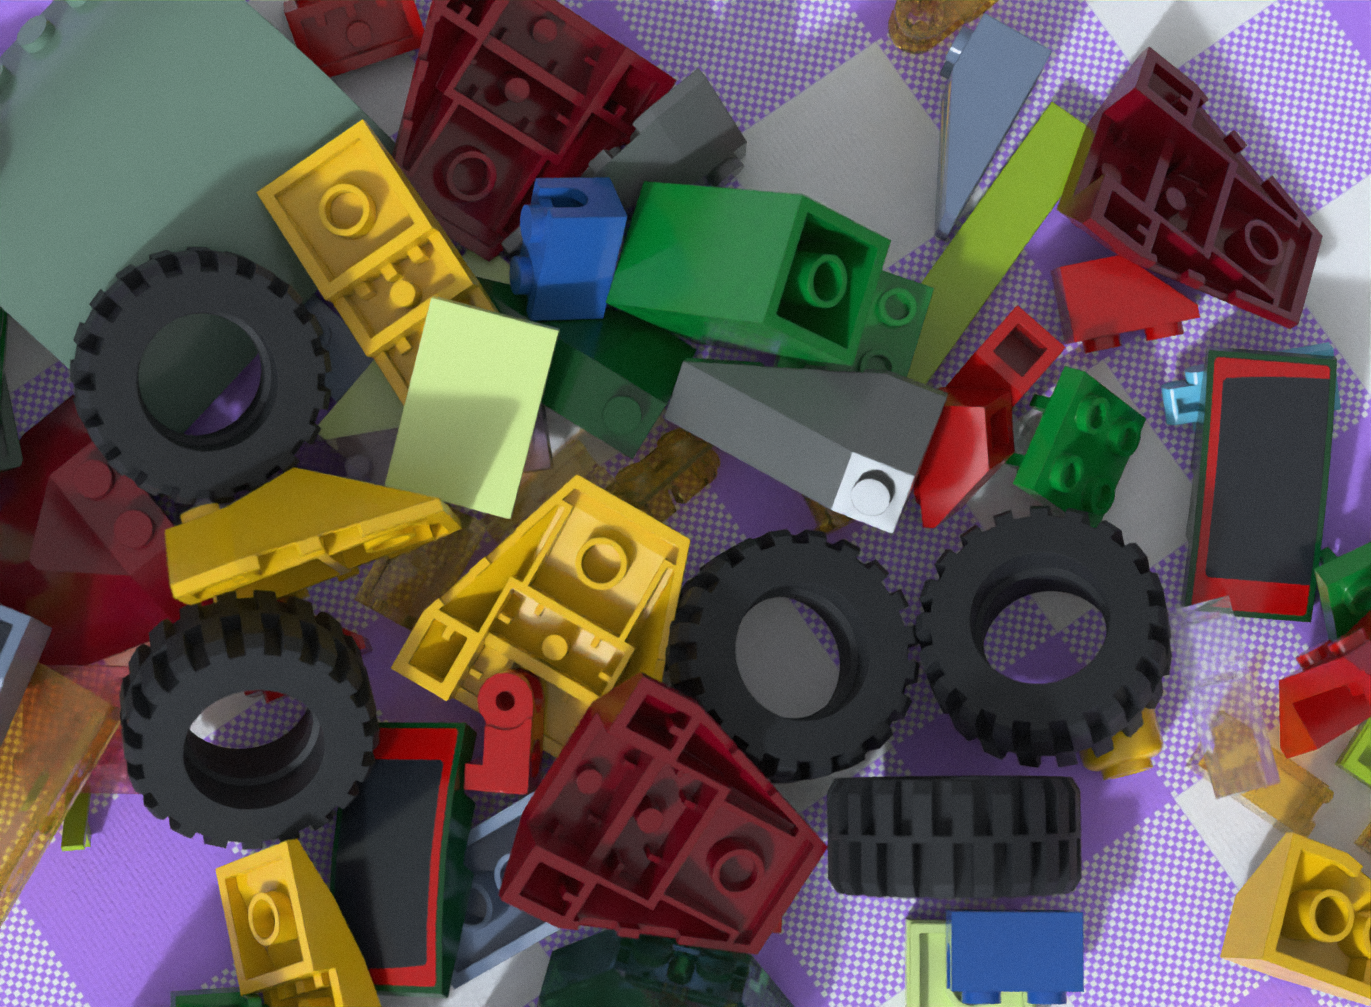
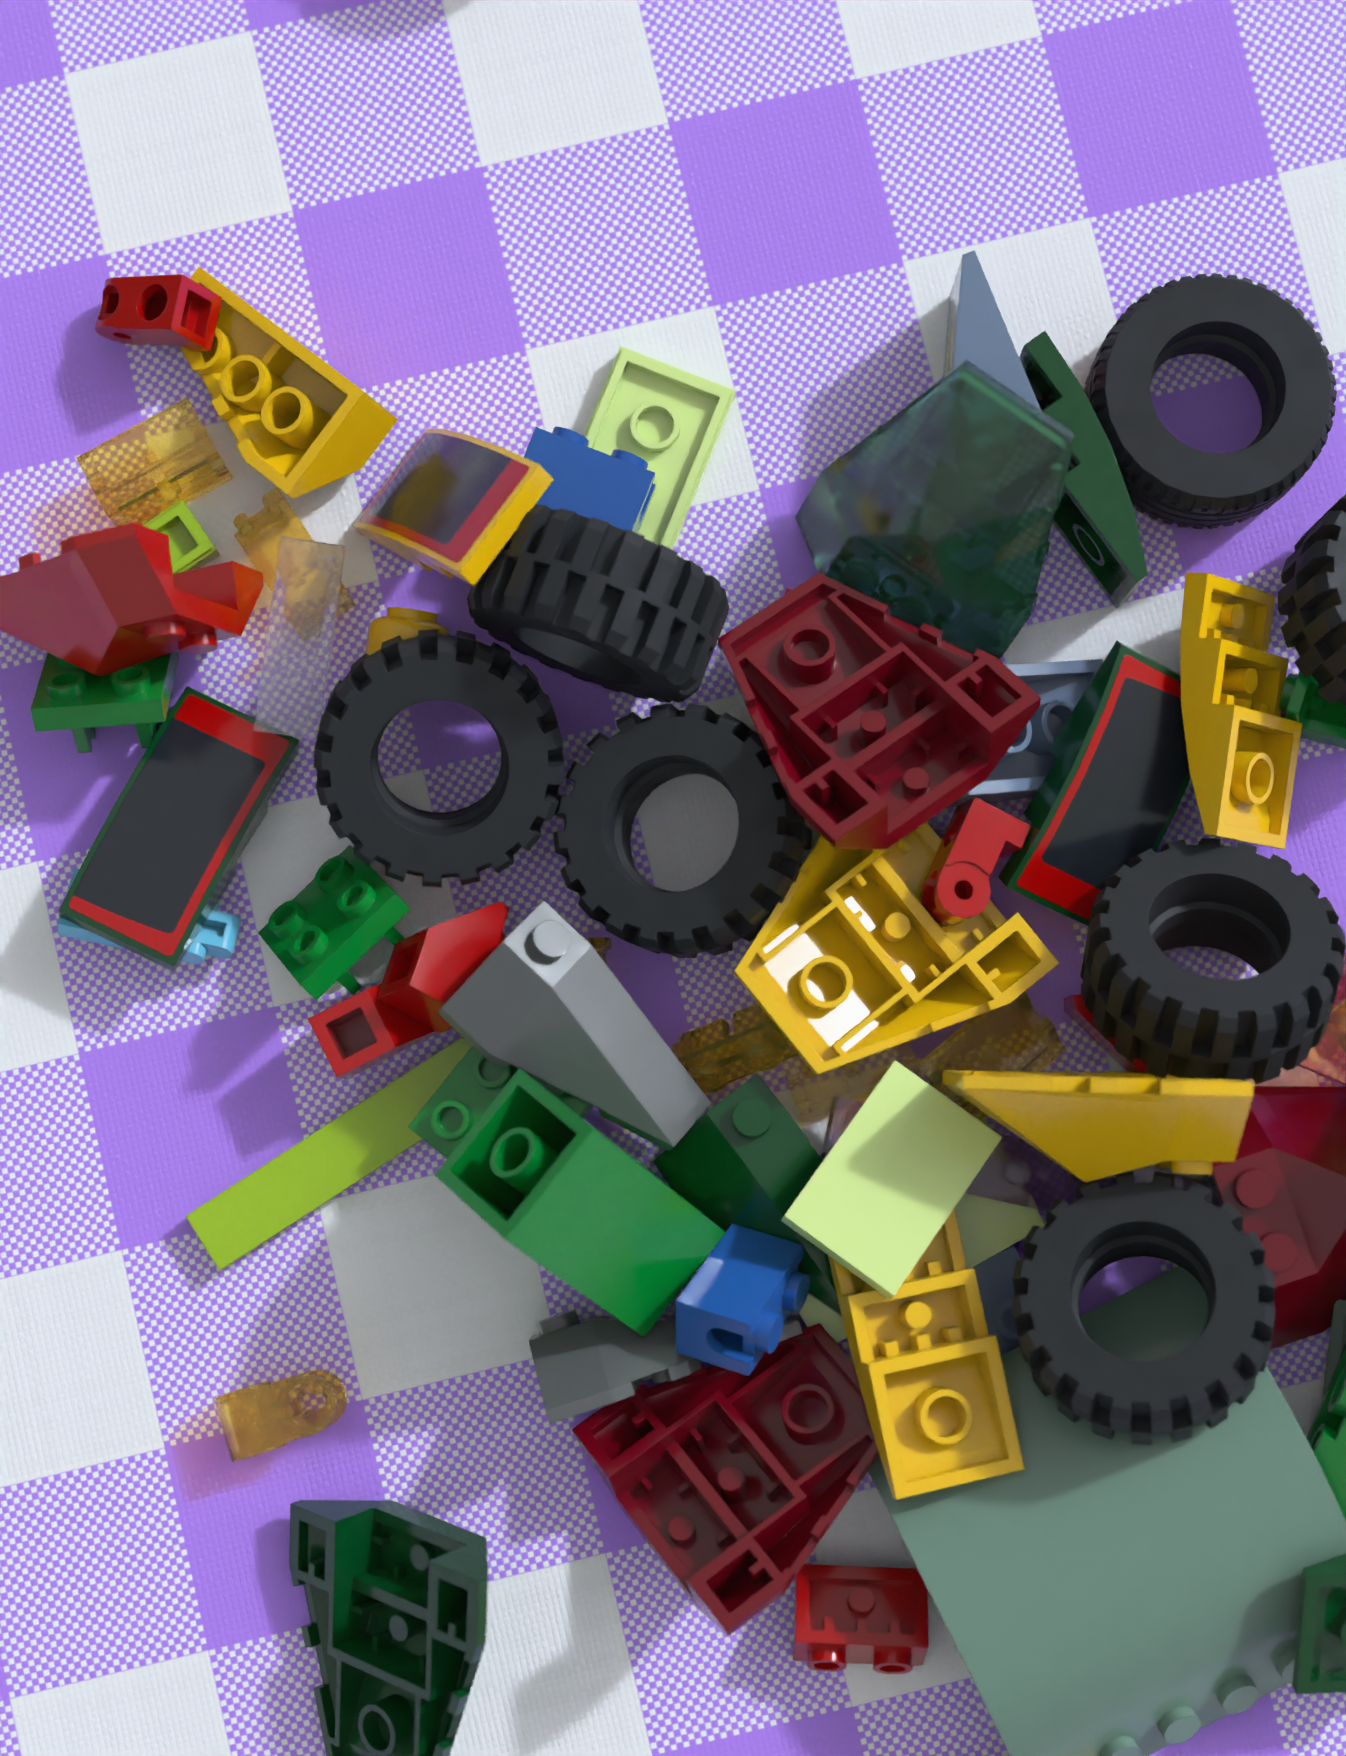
camera: 155 degrees left, 0 degrees up
(986, 88) = (290, 1288): sand blue slope -> none
(1116, 297) = (241, 1054): red slope -> none
(1132, 879) = (453, 503): none -> slope
(1184, 201) = (137, 1120): dark red wedge -> none

